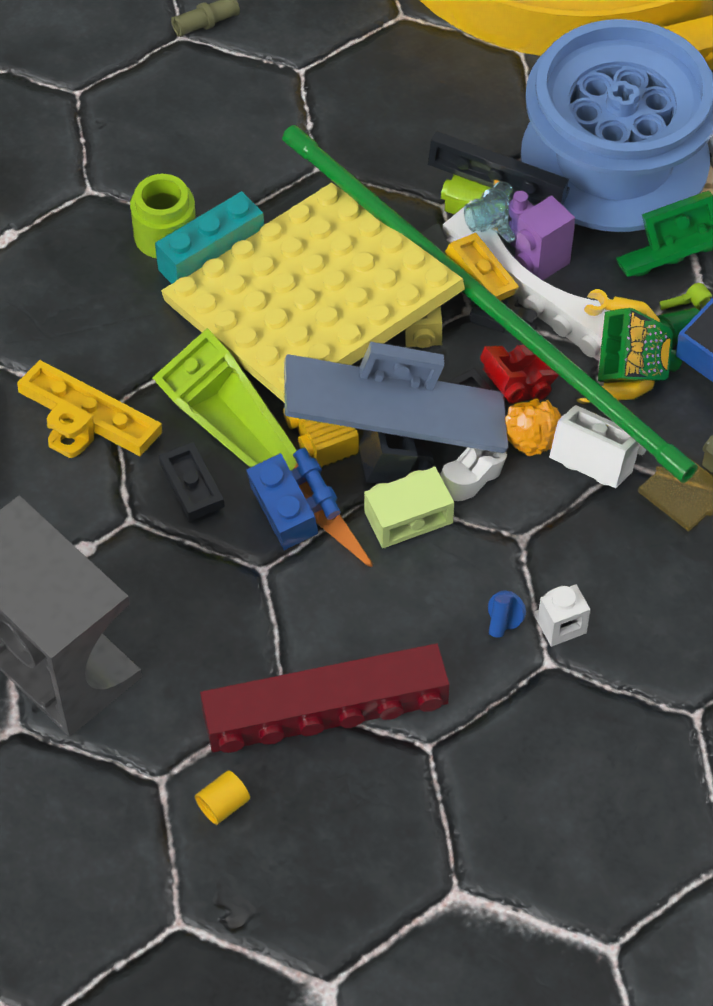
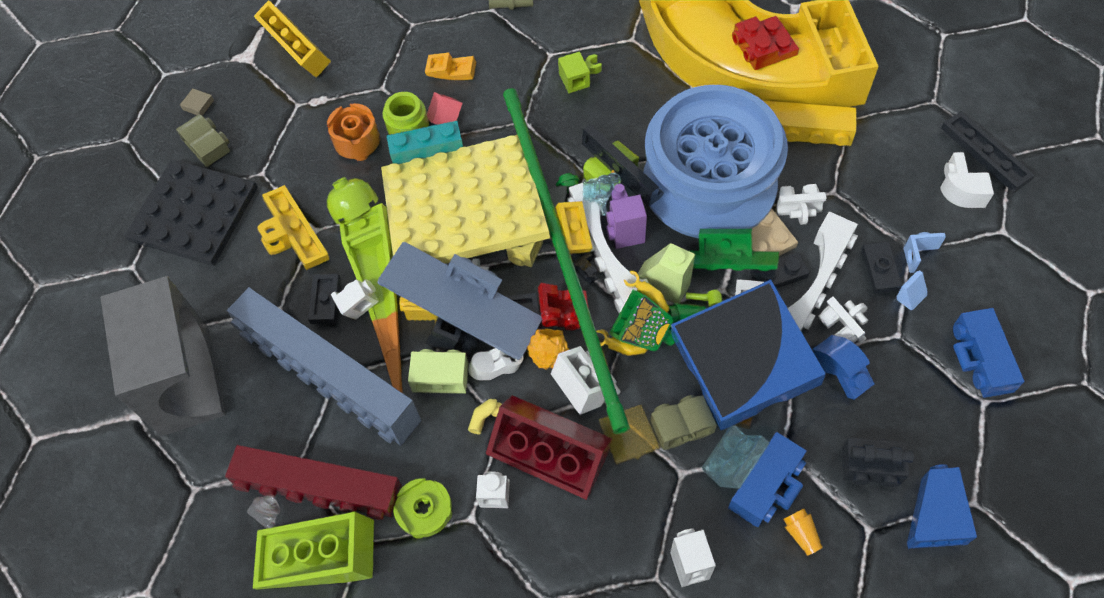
camera: 30 degrees right, 5 degrees up
(97, 256) = (353, 131): none -> orange brick
(155, 341) = (349, 199): none -> lime cylinder
(165, 134) = (444, 67): none -> light orange slope
(207, 185) = (443, 109): none -> coral panel
(222, 797) = (215, 521): yellow beam -> none
(237, 456) = (355, 298): none -> white brick
(254, 554) = (325, 366): none -> sand blue brick
(278, 761) = (264, 510): none -> clear plate
(283, 500) = (364, 334): blue brick -> none
(356, 79) = (576, 72): none -> lime brick
(377, 777) = (315, 552): none -> lime slope
(431, 217) = (567, 180): none -> green plate
(478, 692) = (438, 513): none -> lime plate
(488, 536) = (480, 413): none -> light yellow arm
(506, 612) = (459, 471): blue plate -> none
(599, 539) = (548, 446): none -> dark red slope
(633, 272) = (669, 272): none -> yellowish green slope

